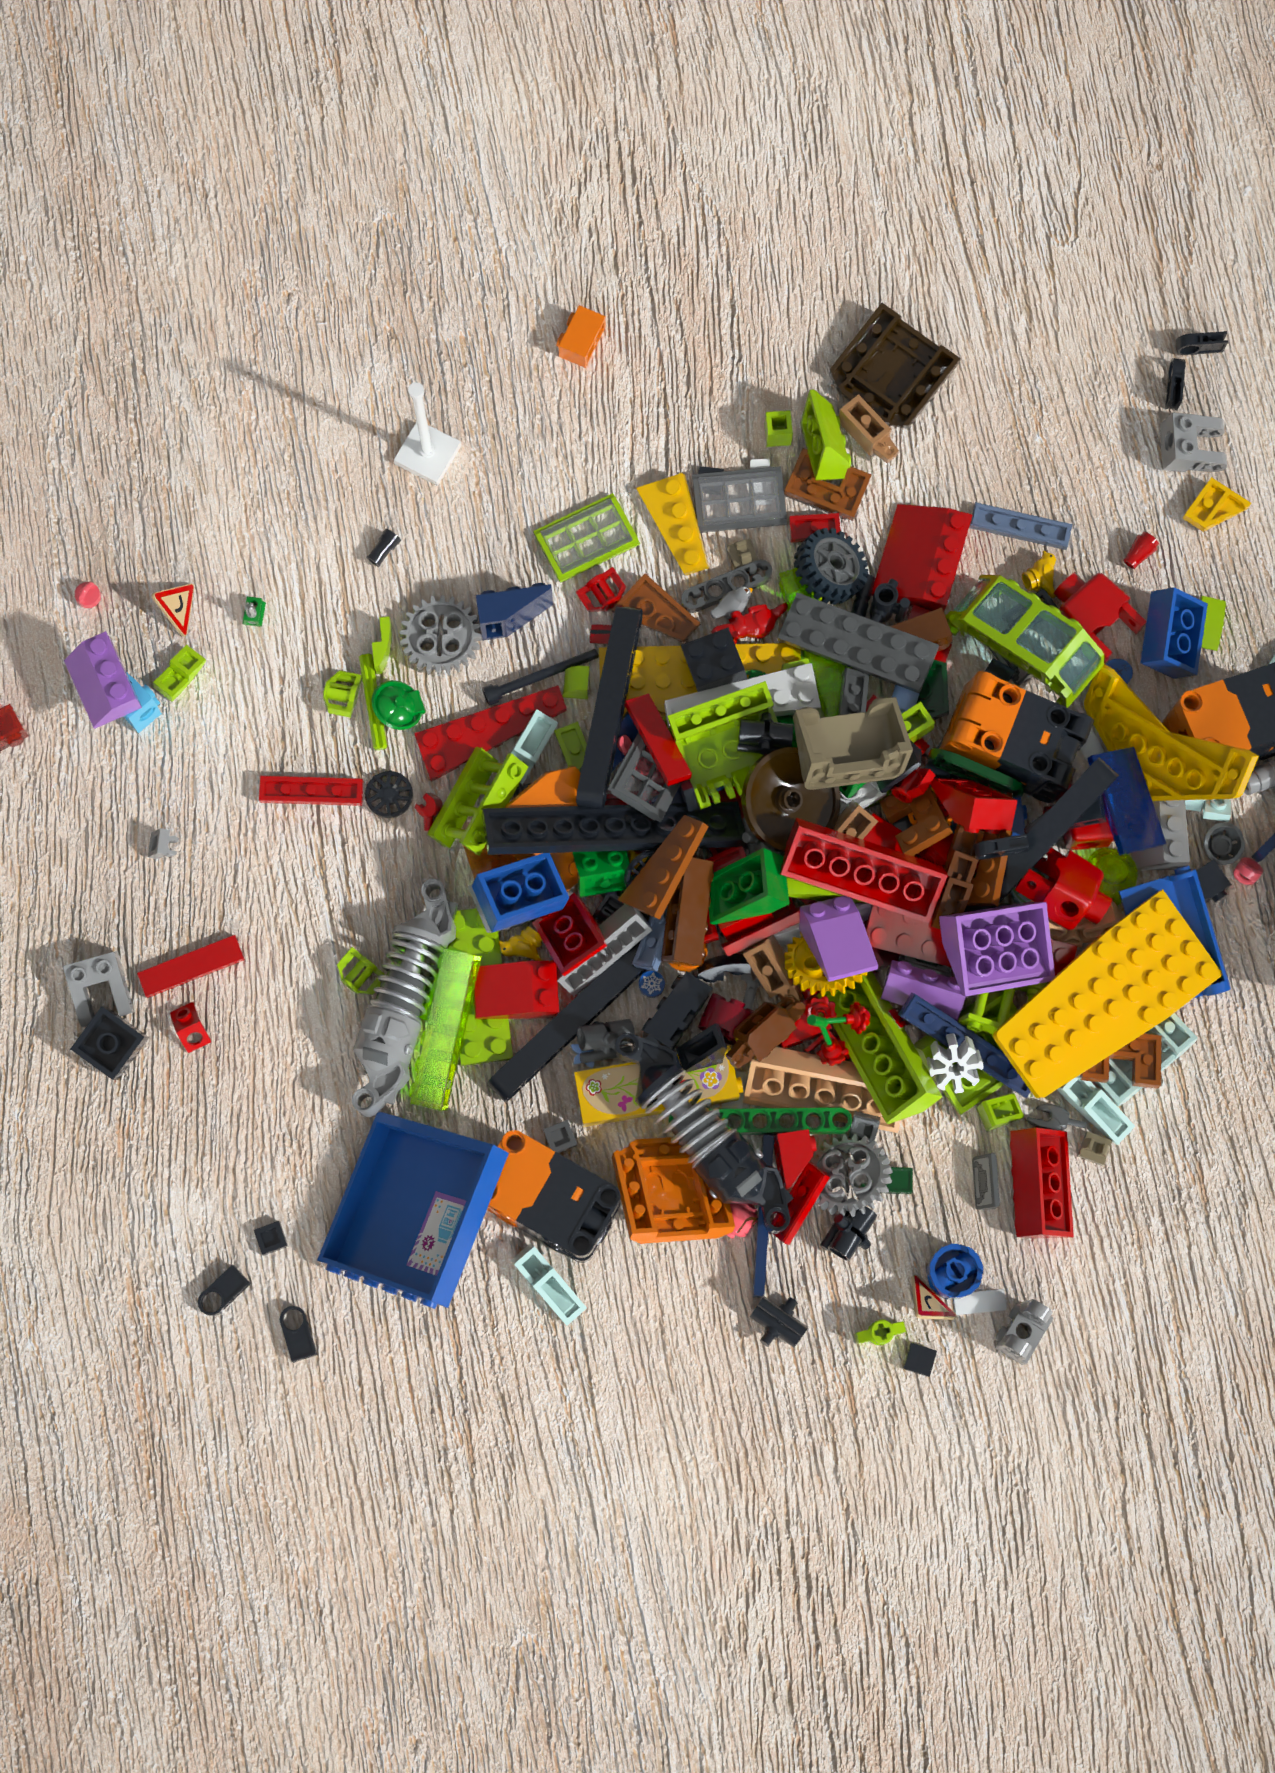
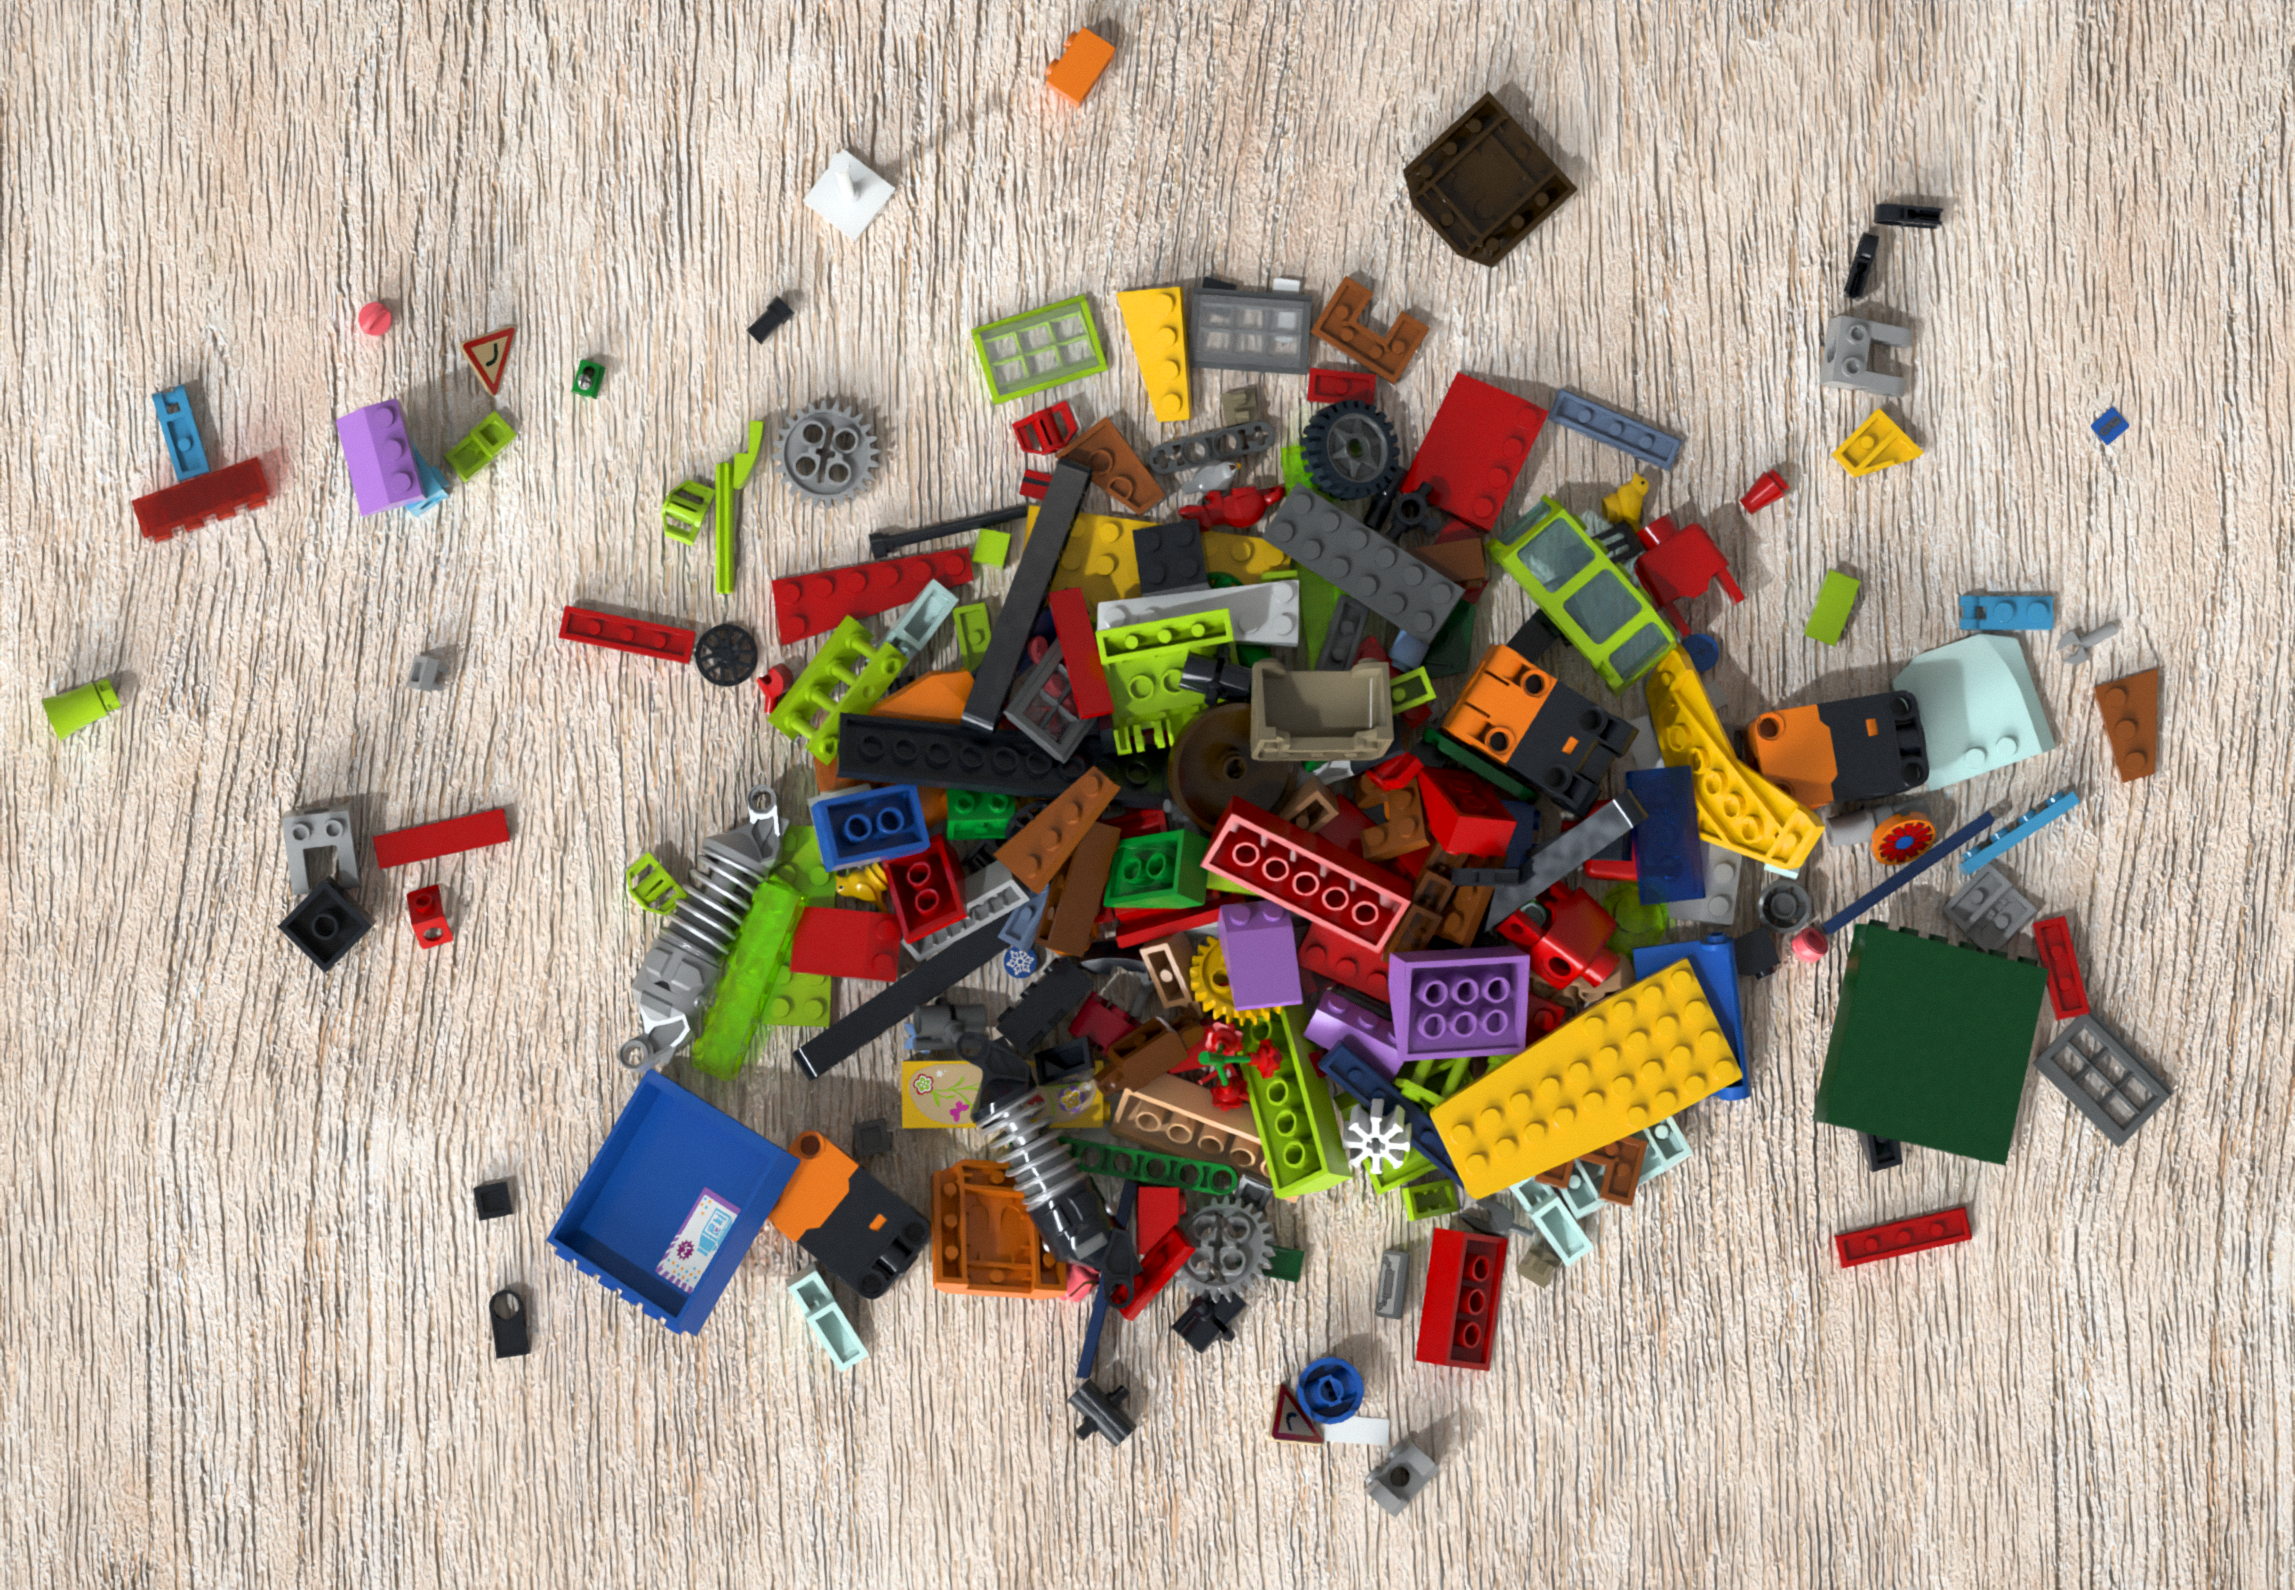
camera: 10 degrees right, 10 degrees up
(228, 1286) = (432, 1253): black piece -> none
(397, 705) = (755, 542): green piece -> none
(511, 609) = (916, 441): dark blue slope -> none
(778, 428) = (1317, 244): lime brick -> none
(824, 438) = (1375, 273): lime slope -> none
(868, 429) = (1436, 266): medium nougat hinge -> none
(880, 1332) = (1224, 1447): lime piece -> none
(919, 1360) = (1267, 1488): black tile -> none
(1174, 633) = (1779, 618): blue brick -> none

